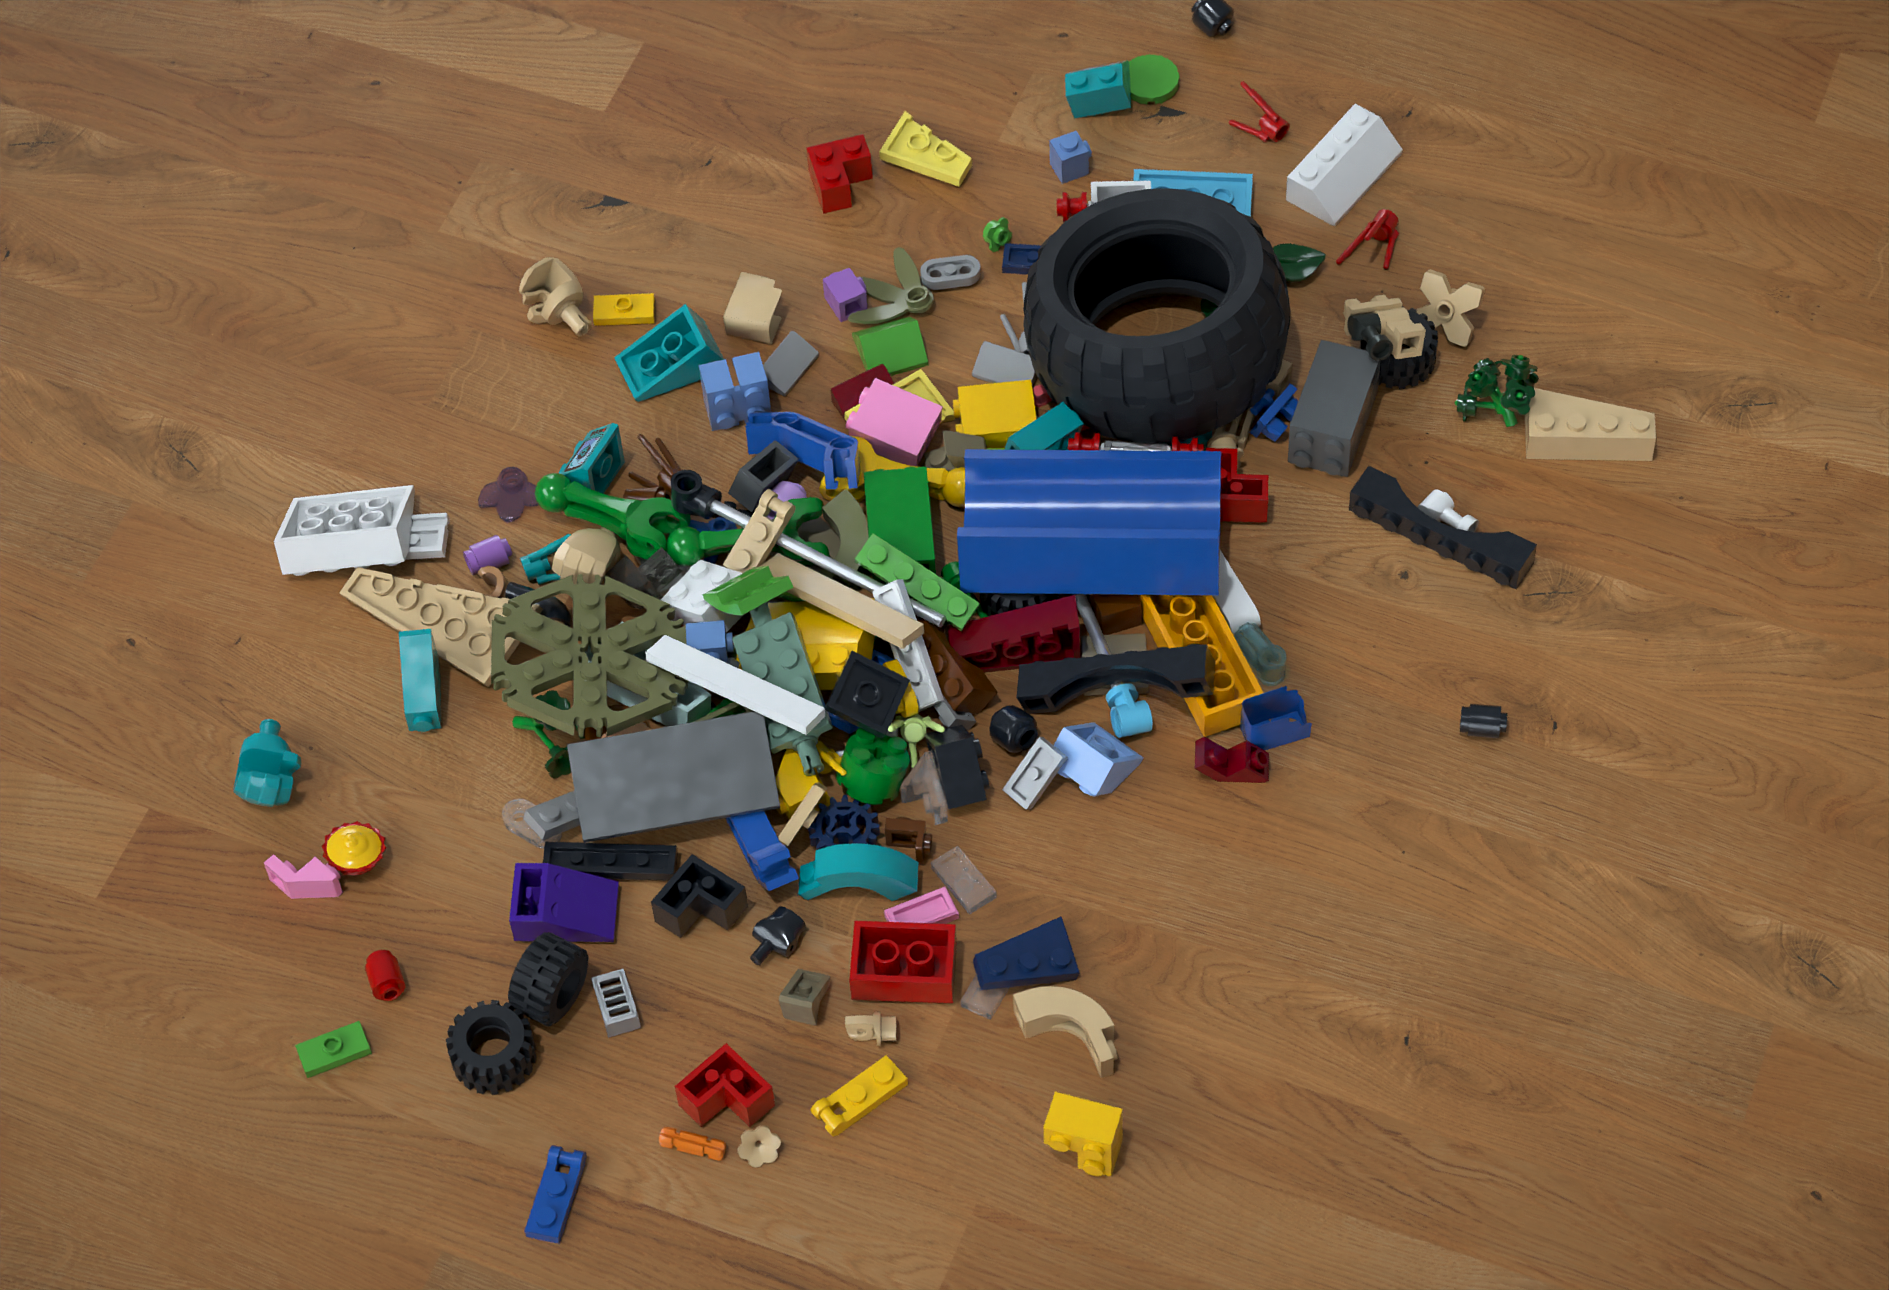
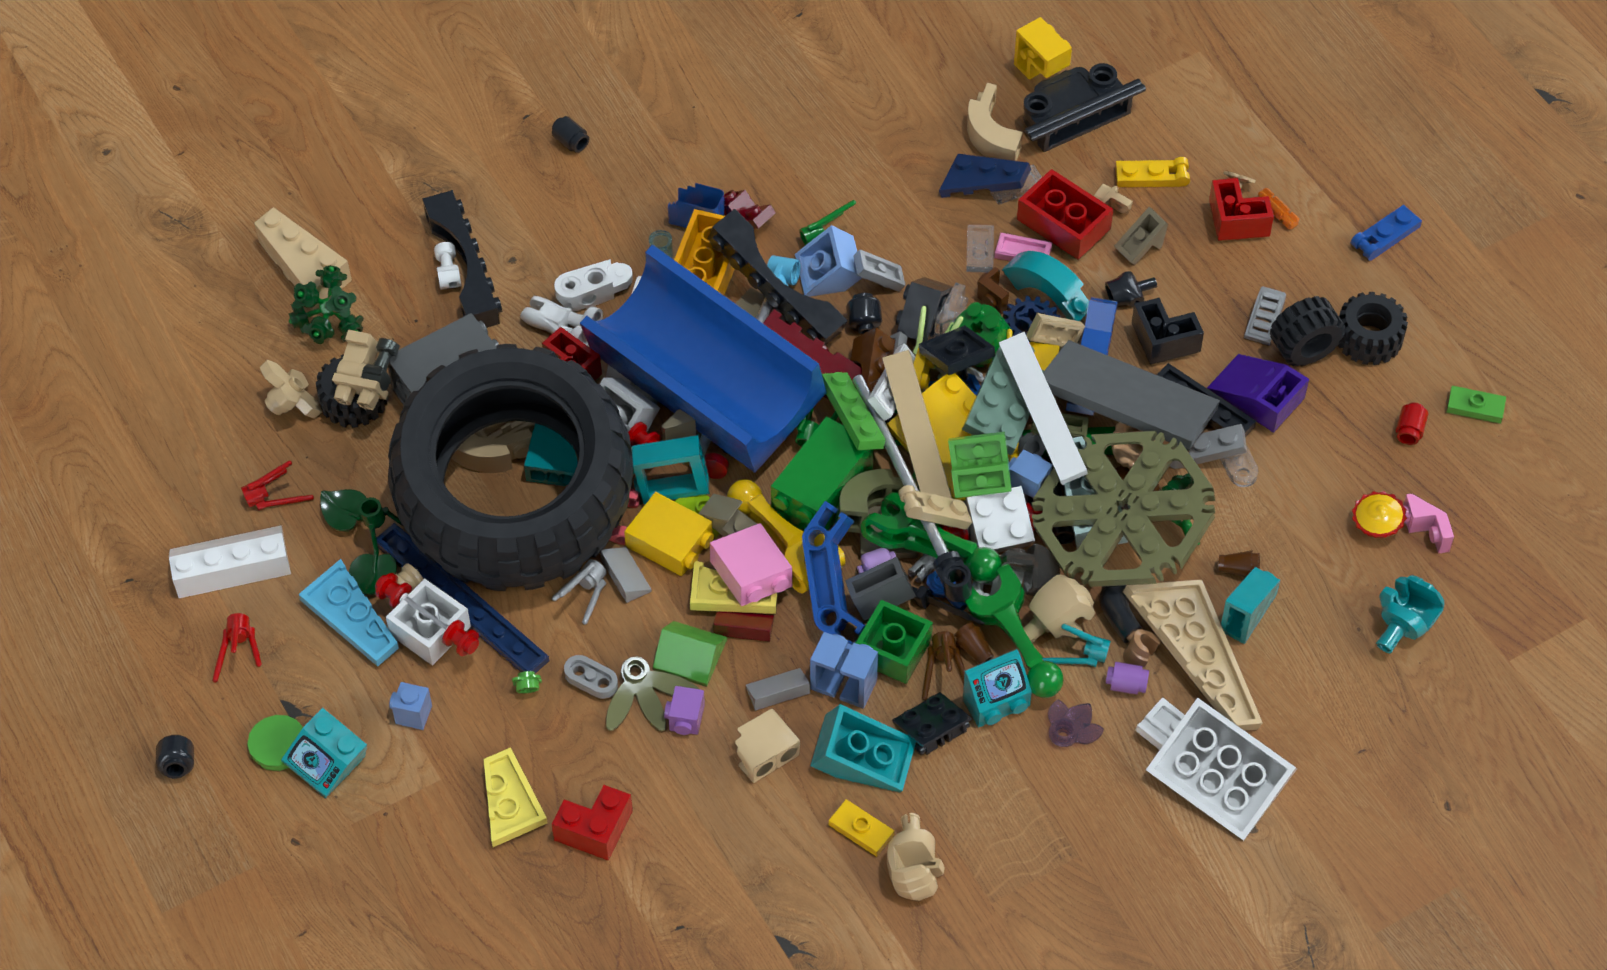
camera: 145 degrees left, 0 degrees up
(457, 725) = (1239, 563): none -> reddish brown cone
(634, 413) = (933, 722): none -> black hinge
(715, 443) = (898, 638): none -> green brick
(1003, 1109) = (1077, 104): none -> black brick
(1138, 782) = (813, 230): none -> green plant
(1288, 605) = (592, 284): none -> white piece
(1296, 535) = (551, 316): none -> white piece

